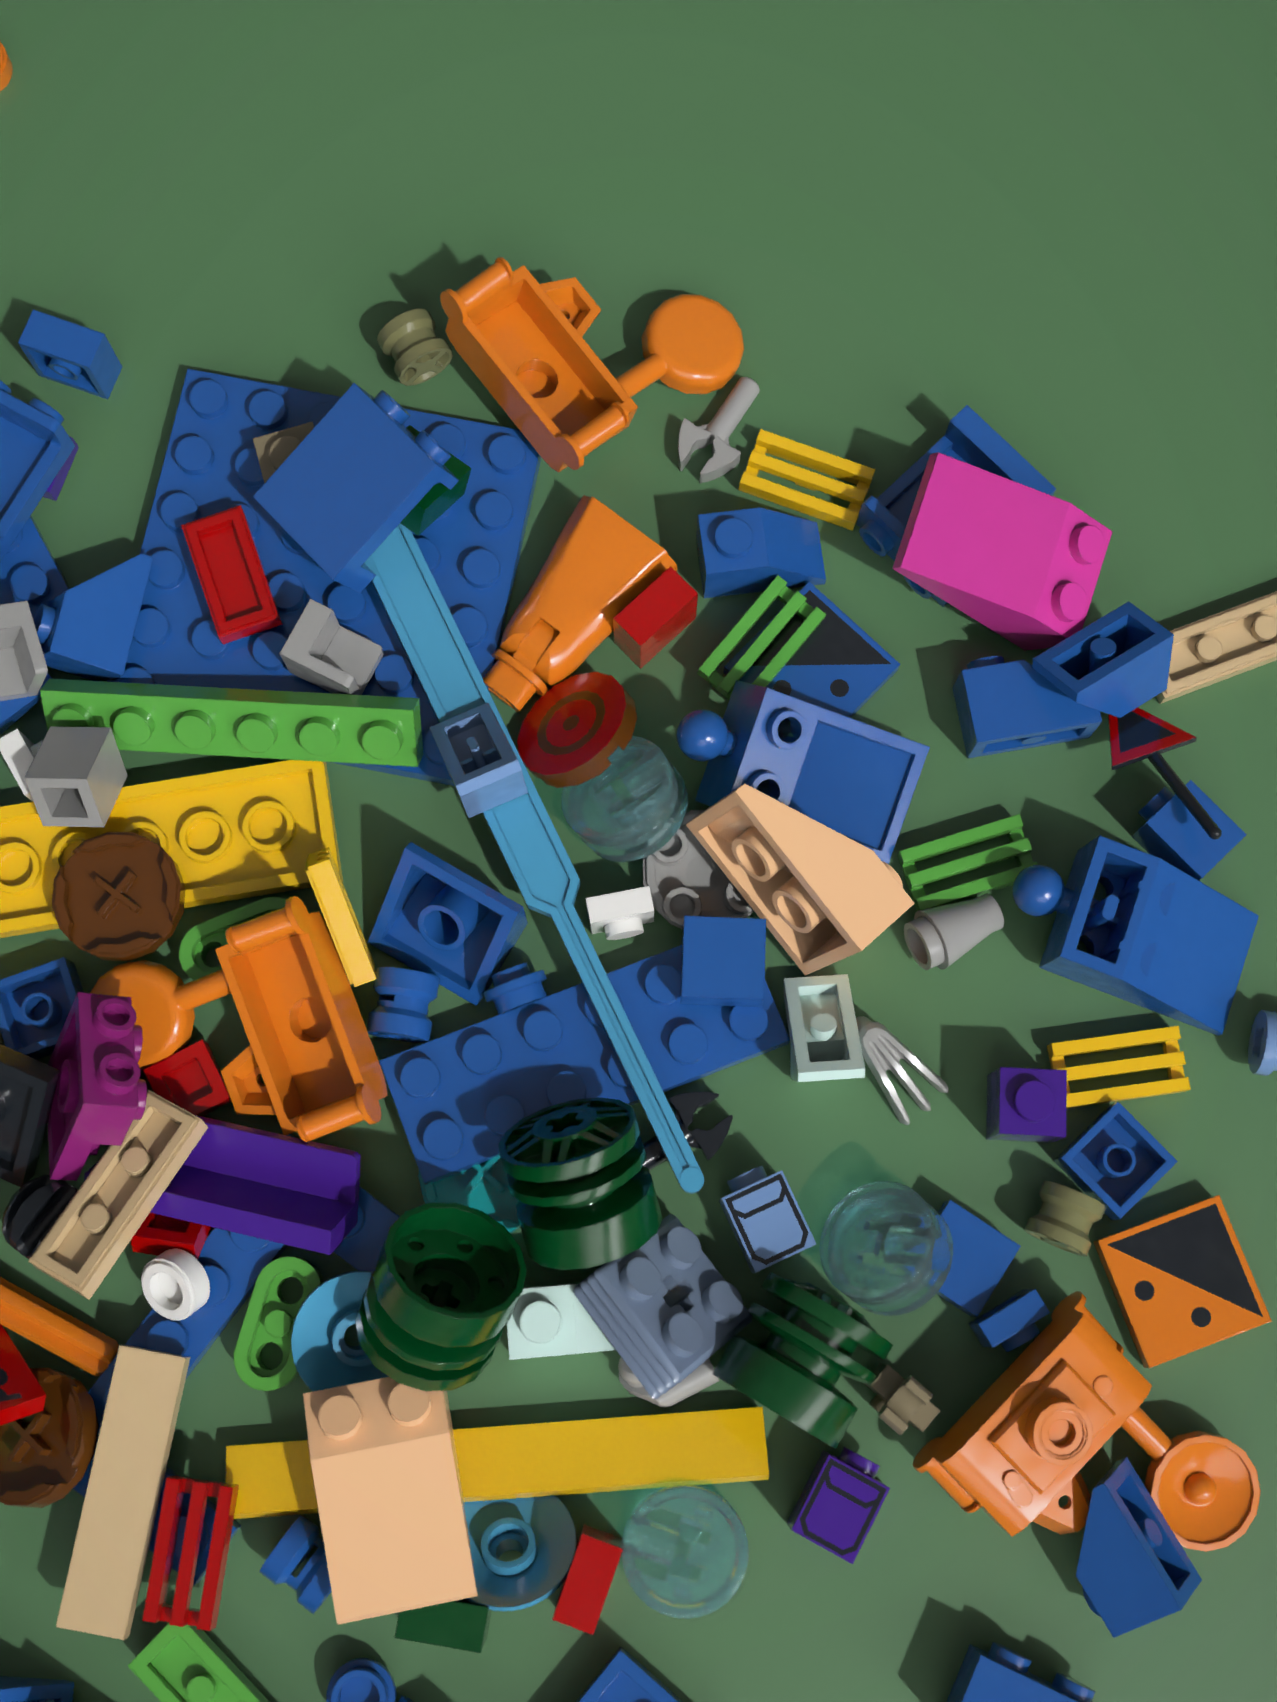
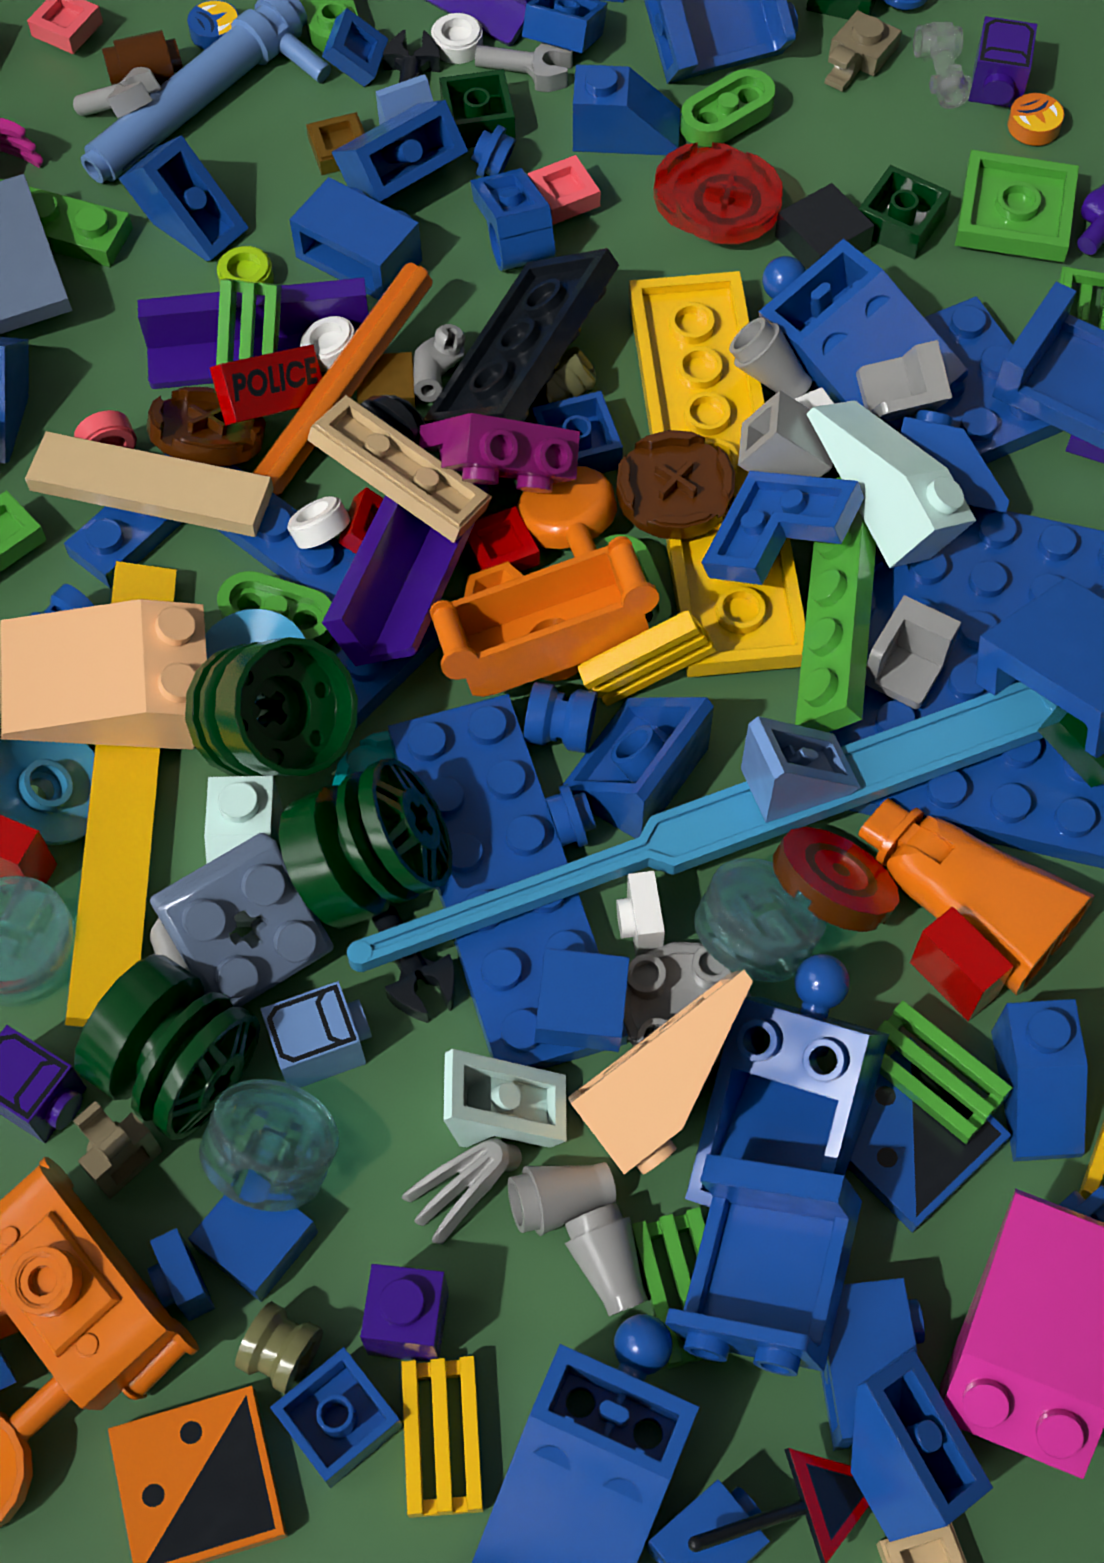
camera: 95 degrees right, 15 degrees down
(47, 1557) = (108, 428): none -> coral tile
(131, 665) = (908, 494): none -> light aqua slope
(163, 788) = (776, 509): none -> blue plate
(179, 1613) = (91, 523): red tile -> none
(231, 574) = (991, 576): red tile -> none
(900, 979) = (553, 1195): none -> light grey cone
(968, 784) = (768, 1265): none -> blue panel

